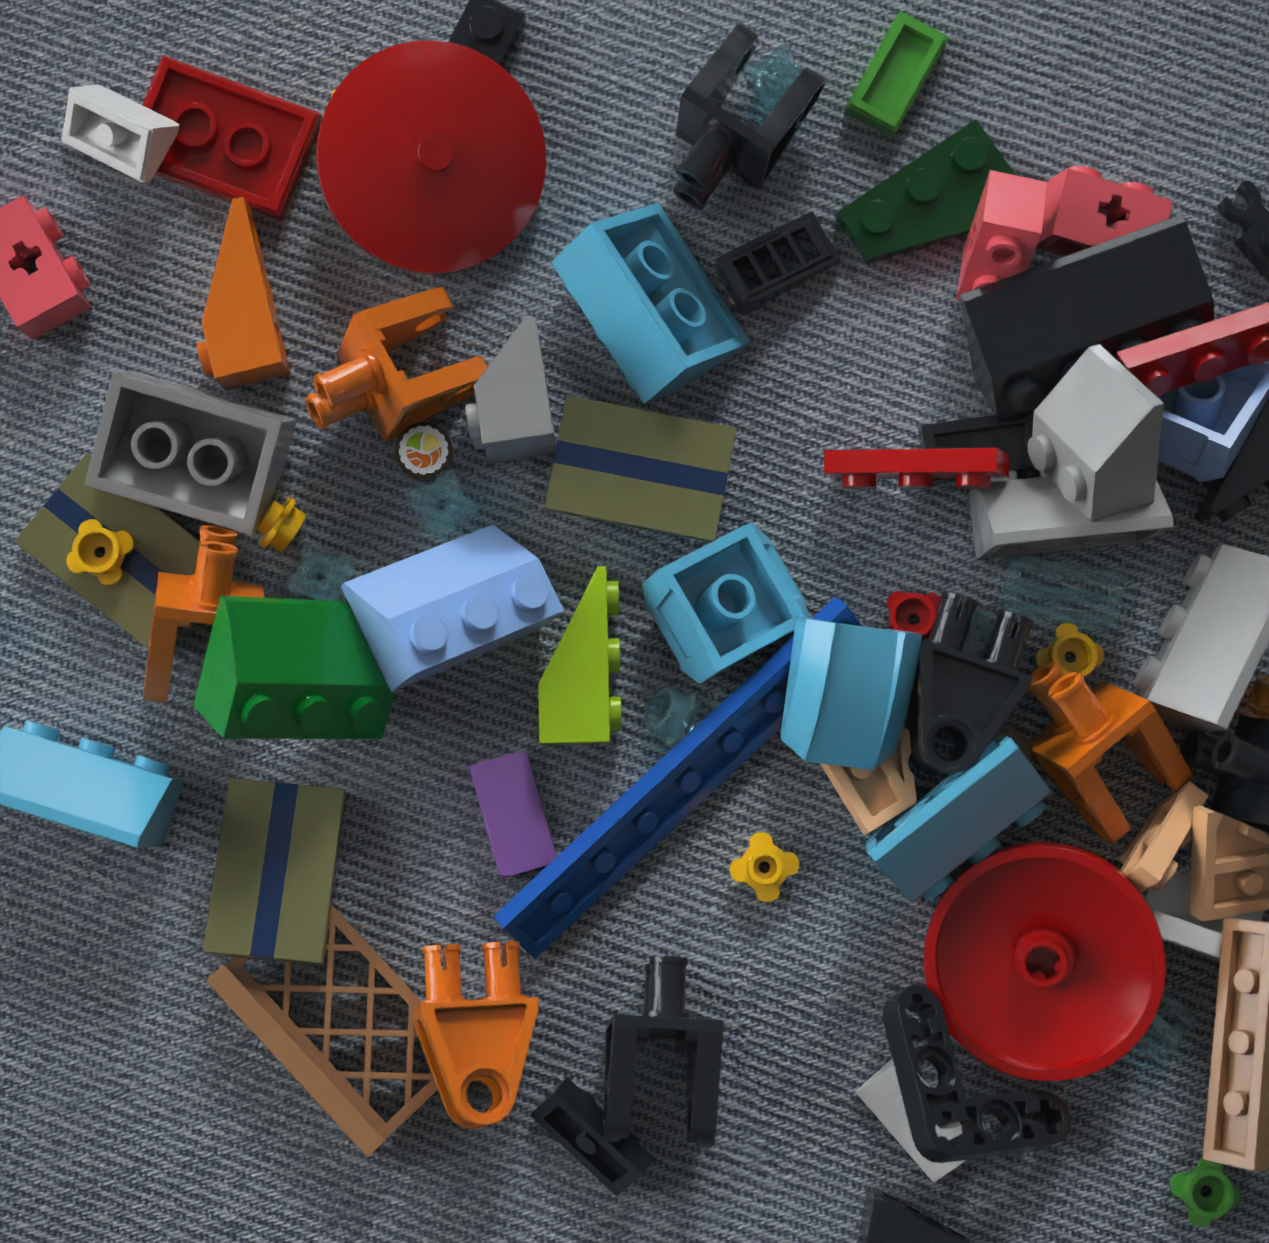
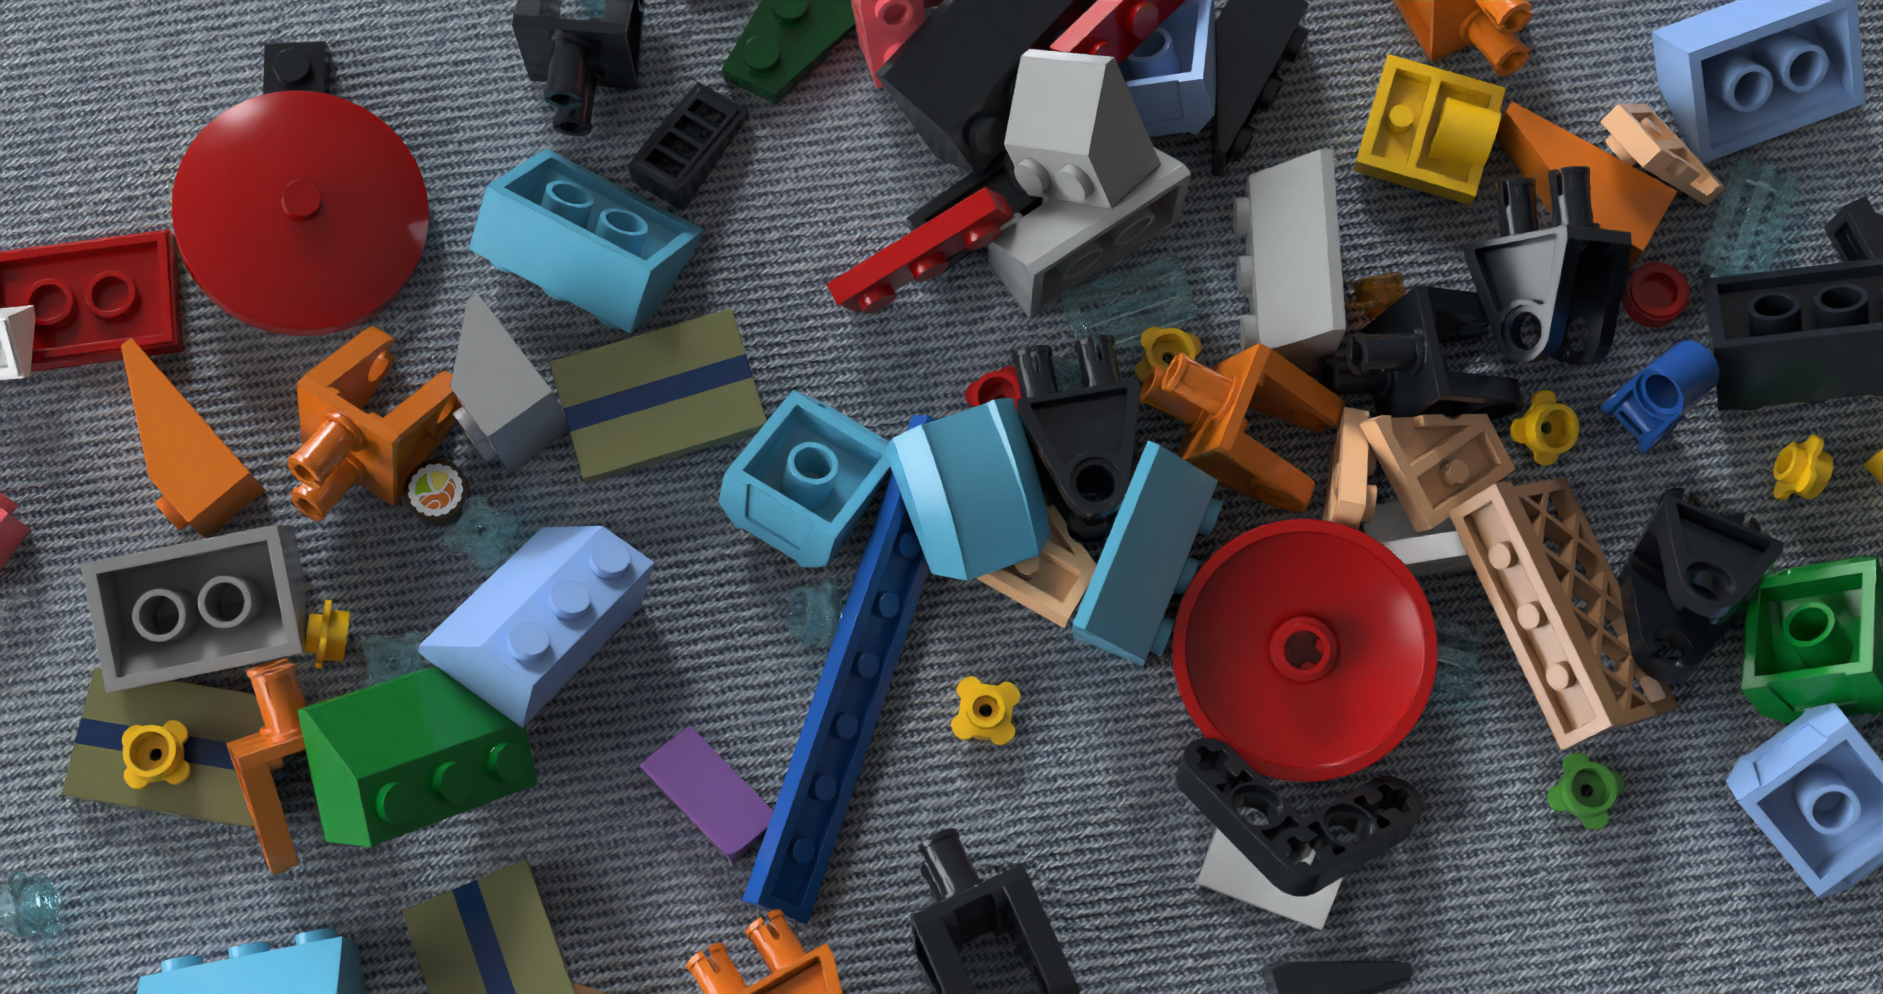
camera: 25 degrees left, 10 degrees down
(576, 682) = (703, 630): lime slope -> none

